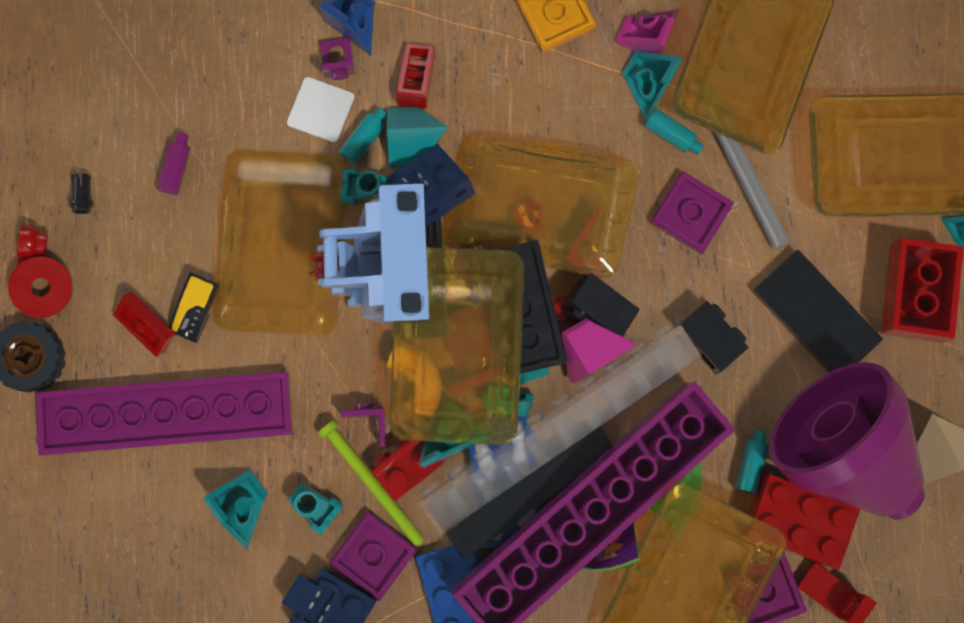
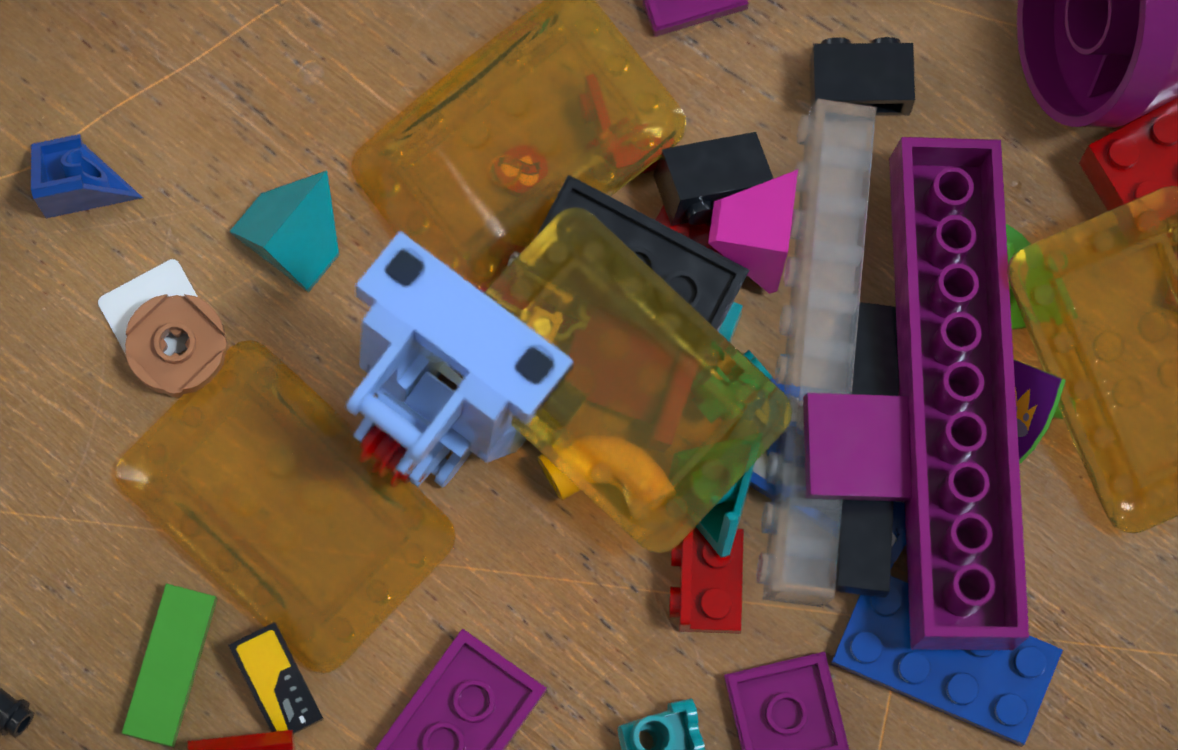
camera: 45 degrees left, 5 degrees down
(162, 253) = (169, 665): none -> bright green tile
(174, 165) = (68, 557): magenta cylinder -> none
(300, 116) = (175, 316): none -> nougat plate
(331, 432) = (691, 641): lime bar -> none
(341, 69) = (129, 249): magenta bracket -> none
(358, 185) = (298, 349): teal plate -> none
(363, 136) = (241, 290): teal cylinder -> none
(366, 410) = (598, 569): magenta bracket -> none
(415, 94) = (241, 183): red slope -> none
(442, 179) = (360, 236): dark blue piece -> none
(522, 485) = (857, 447): none -> magenta tile
(752, 463) = (1056, 160): teal cylinder -> none

